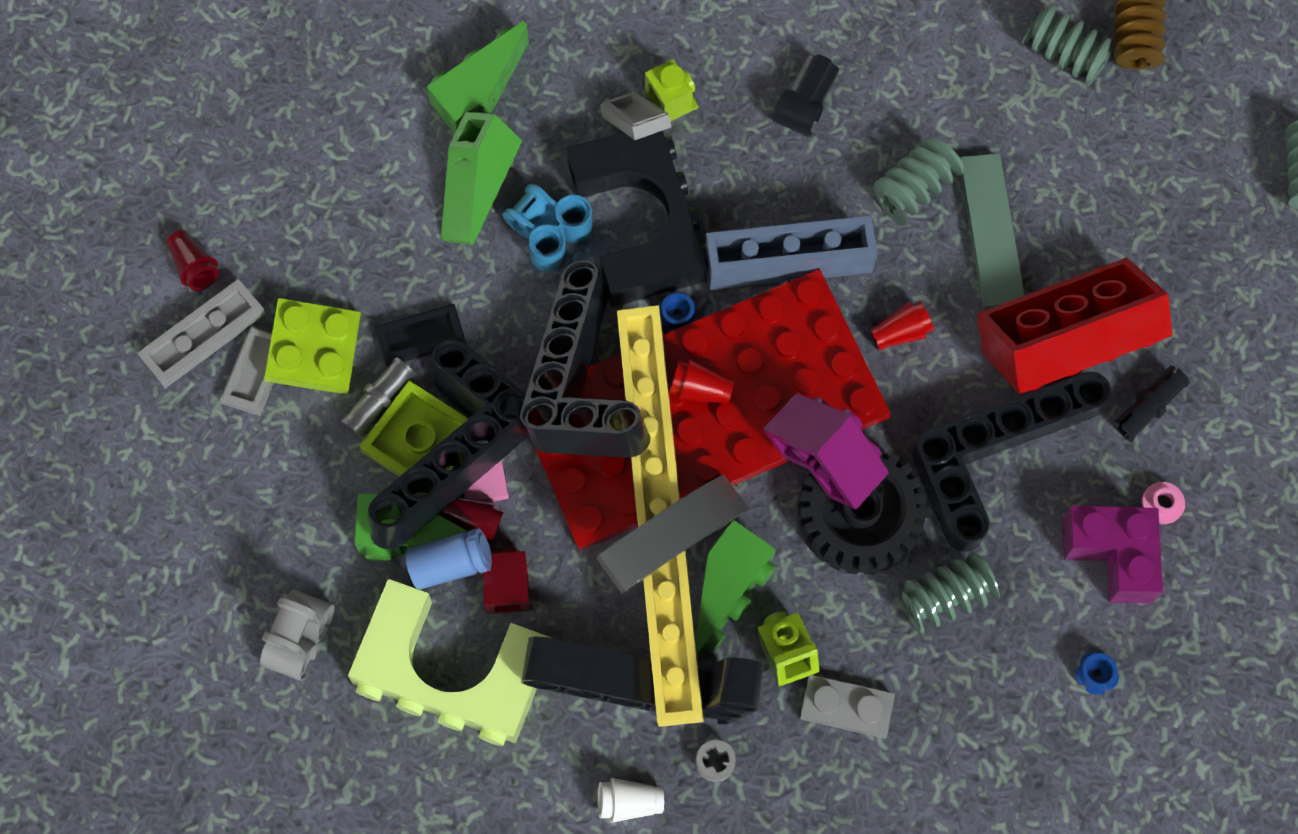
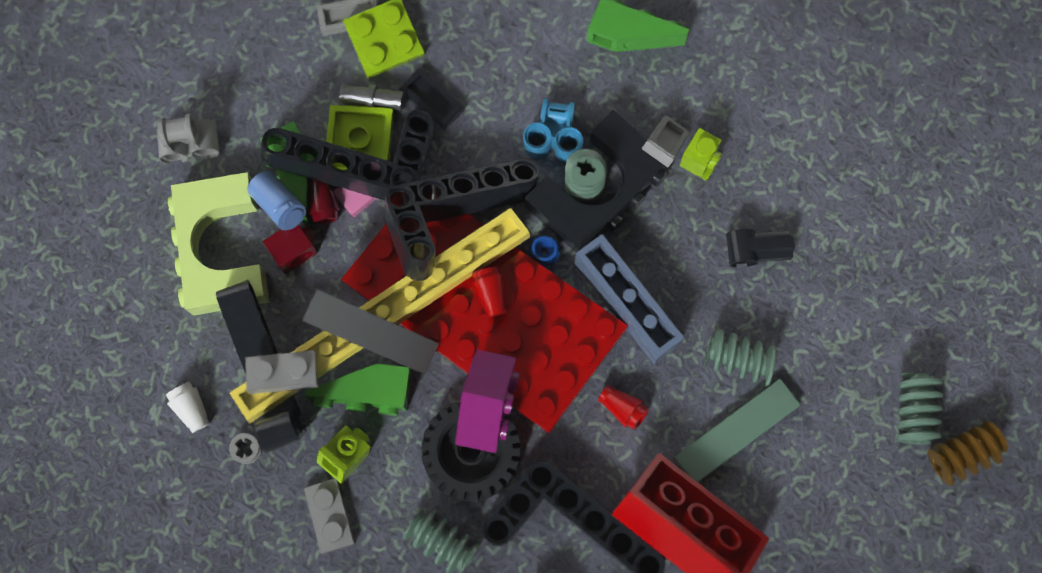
camera: 65 degrees right, 5 degrees up
(475, 171) = (565, 63): bright green slope -> none
(626, 215) = (585, 176): none -> sand green piece
(669, 648) = (281, 372): none -> light grey plate

